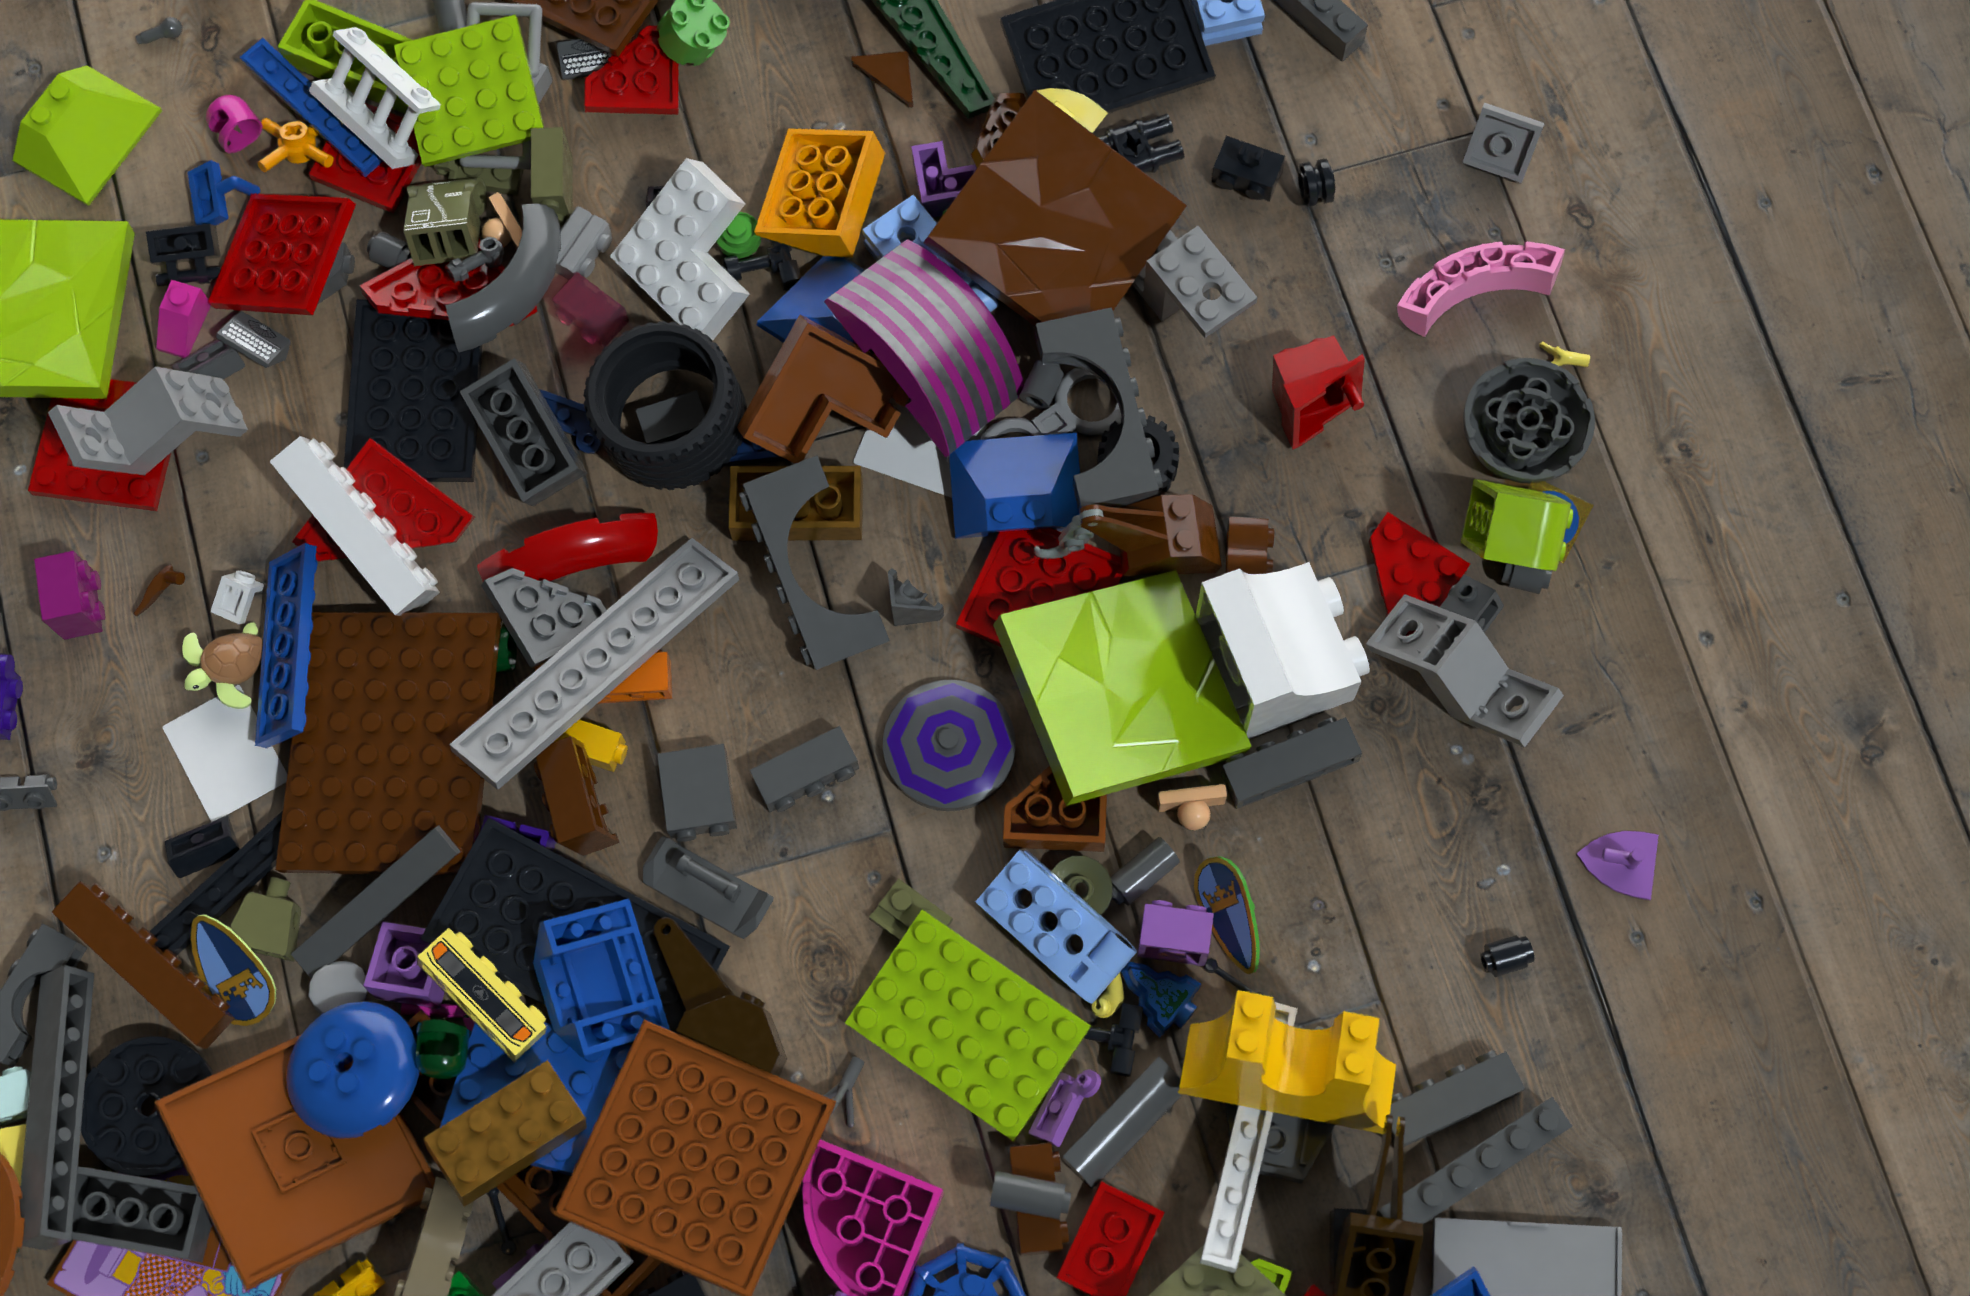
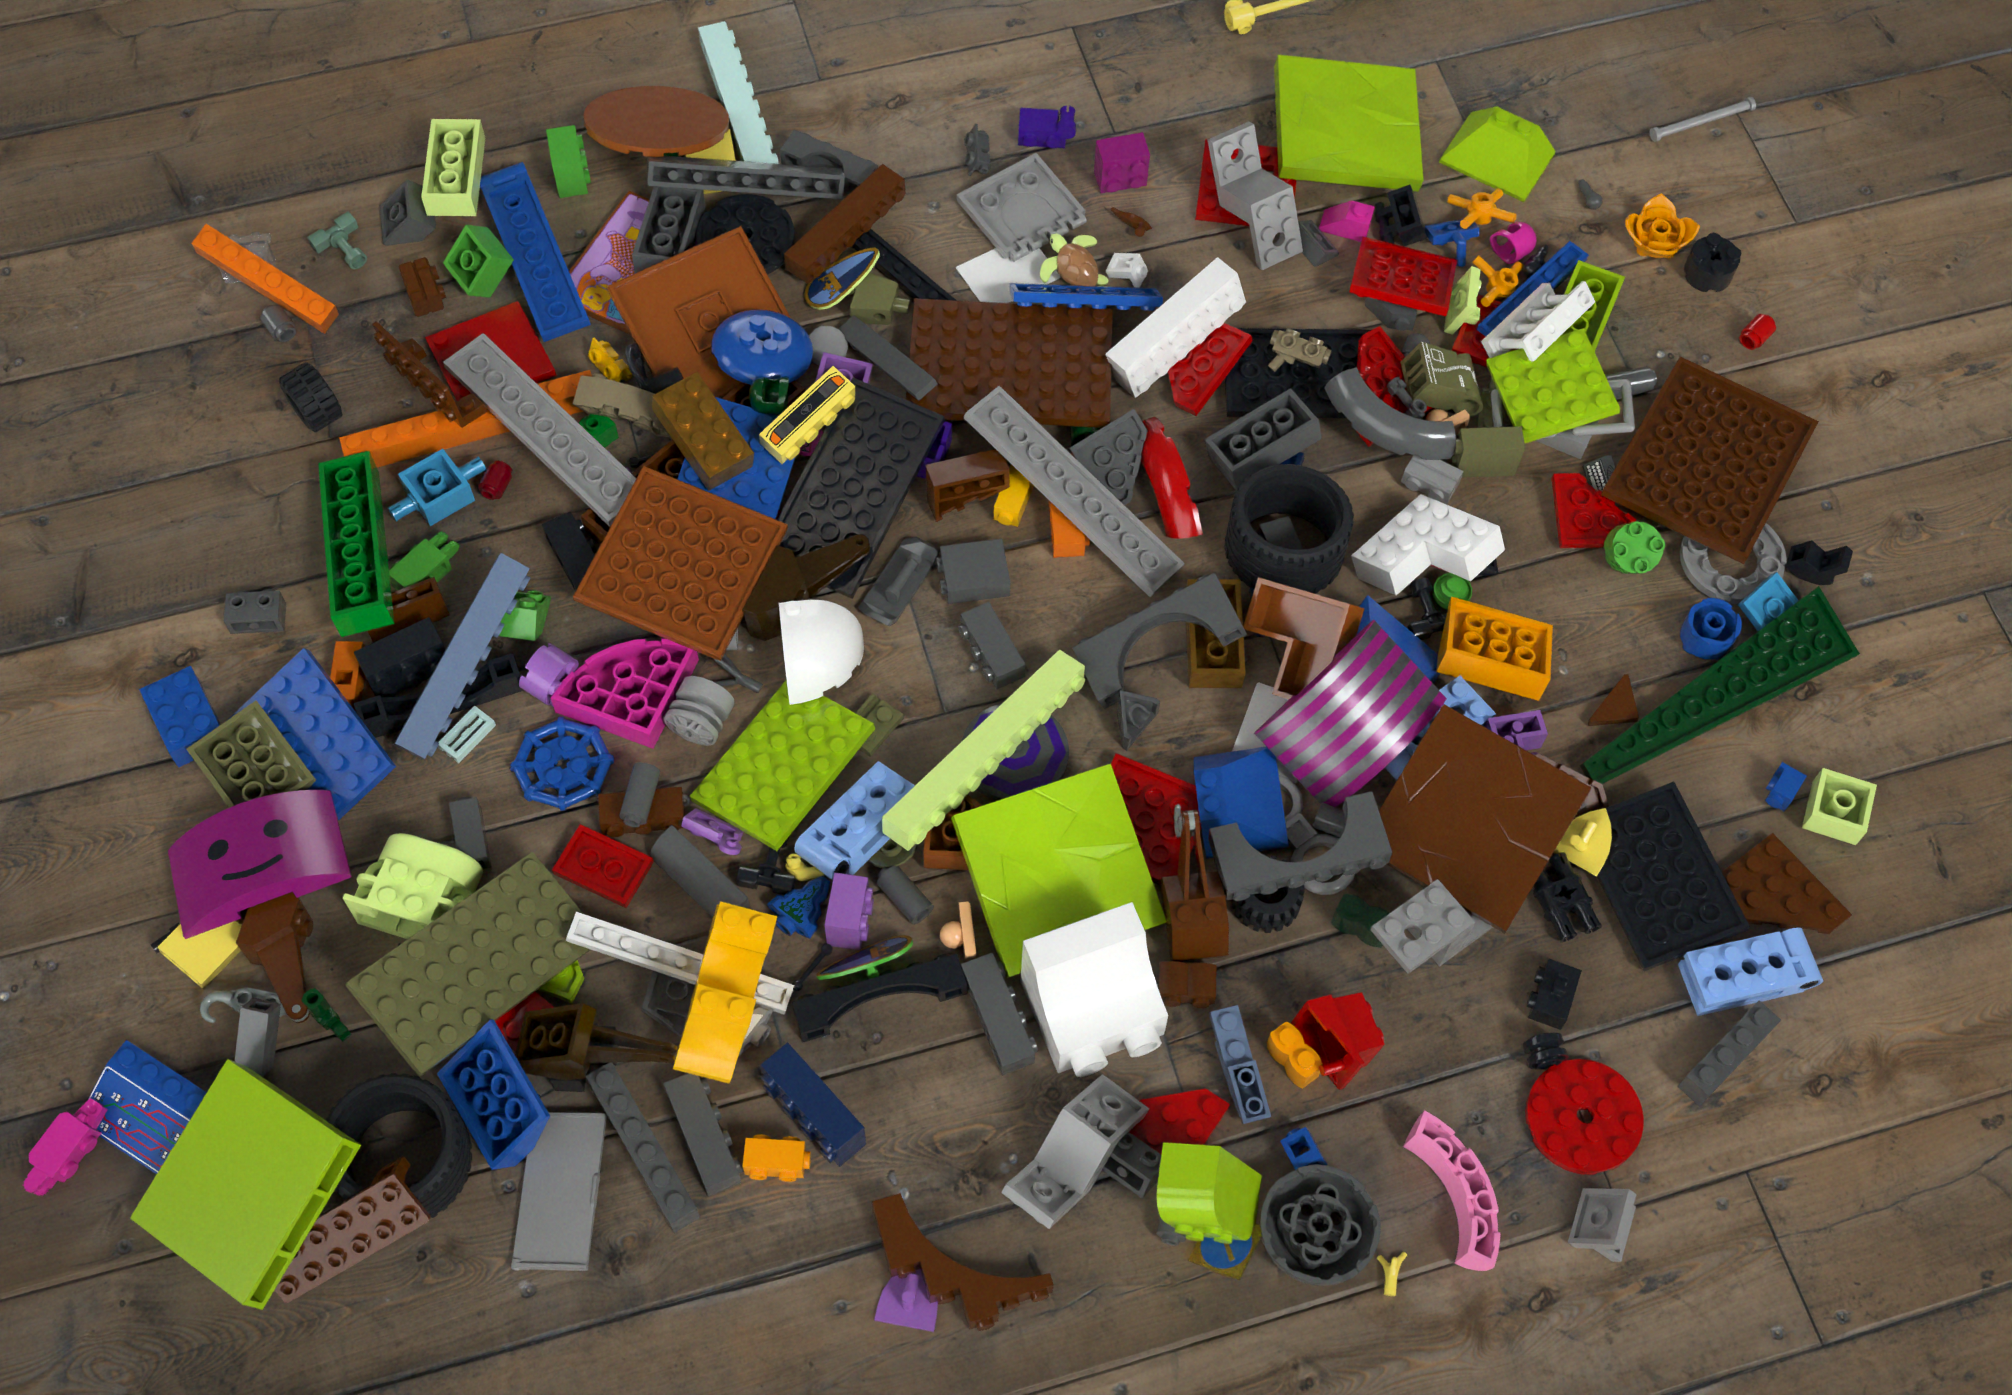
camera: 85 degrees right, 10 degrees down
(124, 731) = (1022, 207): none -> light grey hinge
(176, 156) = (1481, 208): none -> light orange bar
(201, 847) = (936, 260): black slope -> none
(254, 340) = (1332, 267): slope -> none
(270, 105) = (1535, 262): none -> black bar
(324, 180) = (1463, 301): none -> yellowish green hinge
(389, 389) = (1292, 347): none -> dark tan brick
(402, 1217) = (653, 384): none -> black piece
(589, 310) = (1375, 487): clear pink brick -> none
(596, 978) = (822, 497): blue slope -> none
(819, 982) = (819, 647): none -> white brick
(903, 1130) = (699, 710): none -> light grey wheel
(968, 769) = (983, 750): none -> yellowish green brick
(1165, 360) = (1356, 917): none -> clear green brick
(1298, 970) = (937, 978): none -> black arch
(1326, 441) = (1289, 1050): none -> light orange brick
(1346, 500) = (1238, 1065): none -> sand blue slope
(1383, 123) = (1578, 1145): none -> red plate
(1424, 962) = (813, 1105): none -> dark blue brick
(1452, 436) = (1298, 1140): none -> blue brick
(1480, 1005) = (775, 1158): none -> light orange brick
(1507, 955) = (825, 1186): black brick -> none
(1621, 782) = (944, 1278): none -> reddish brown arch

